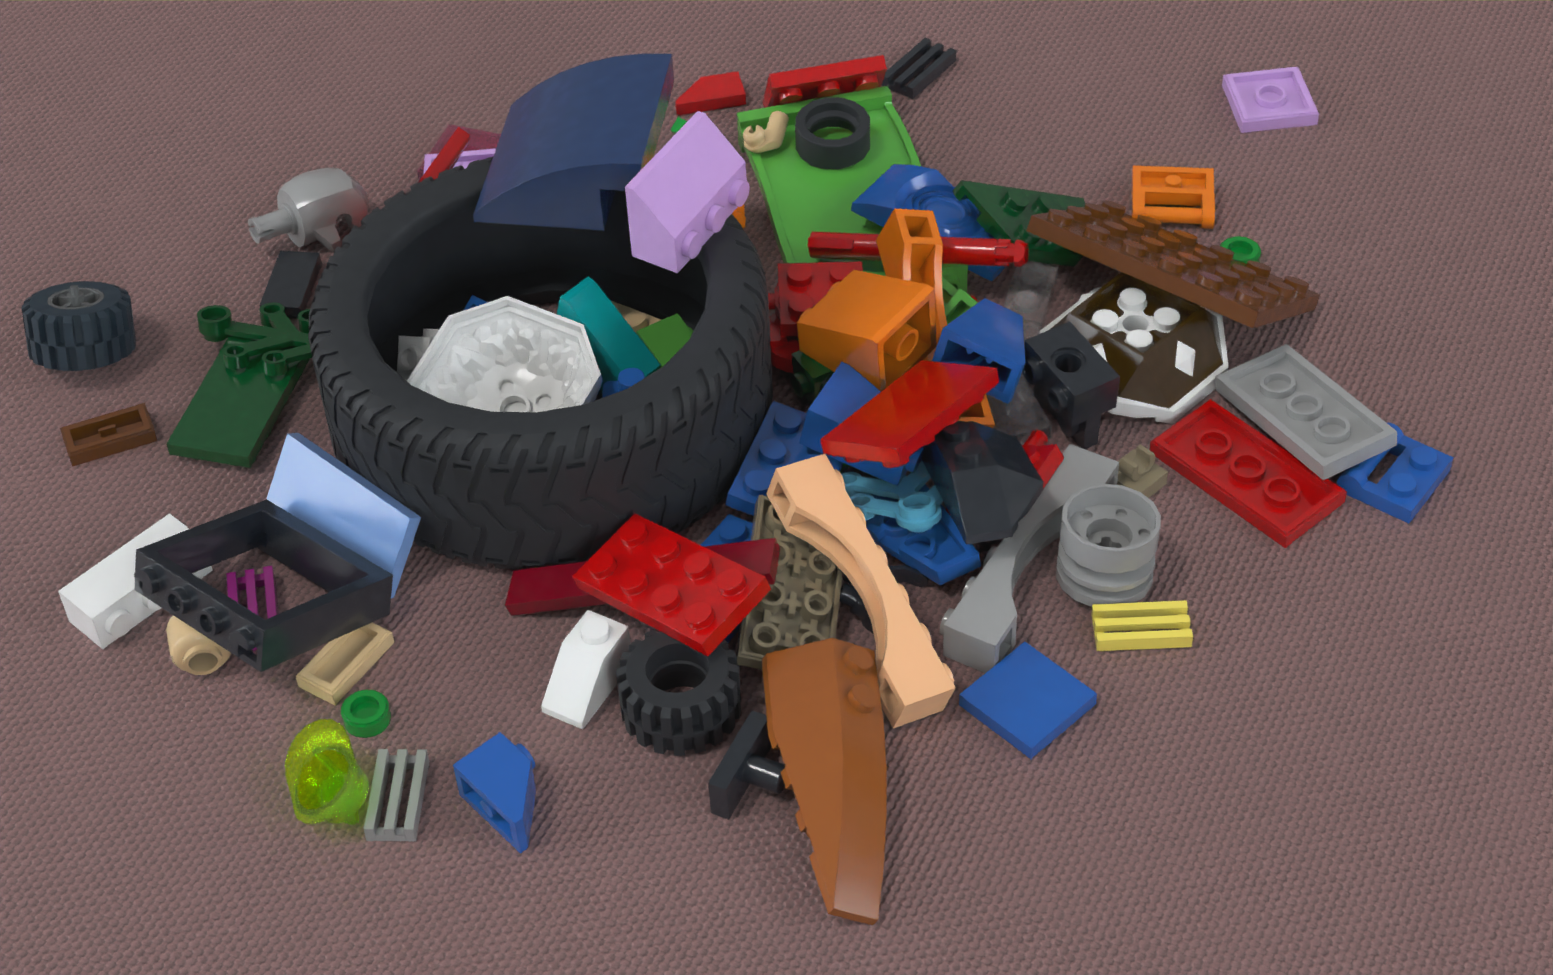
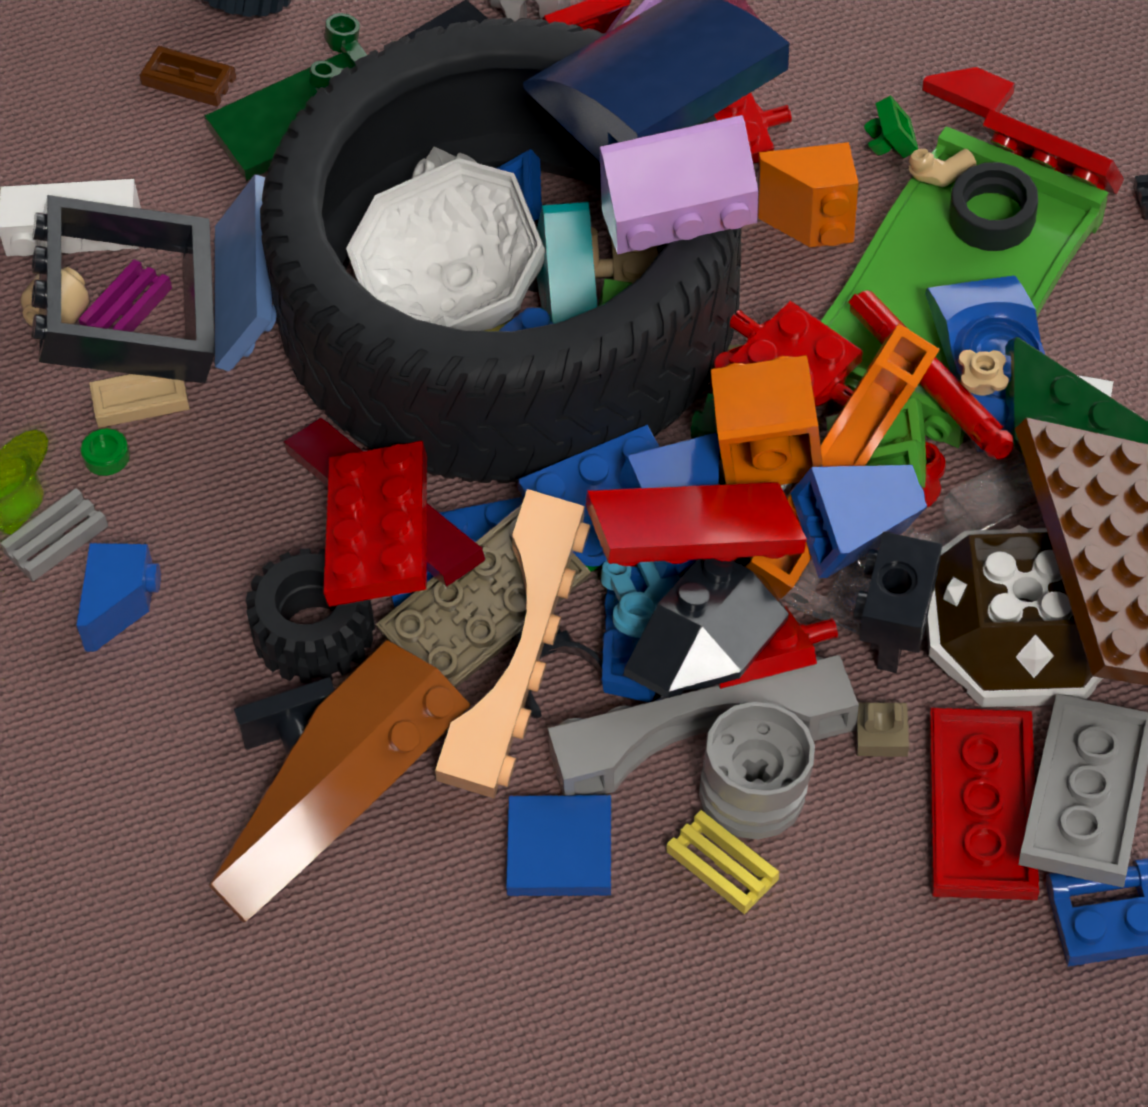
camera: 45 degrees right, 10 degrees up
(585, 669) = (268, 535): white slope -> none
(957, 220) = (983, 381): none -> tan plate

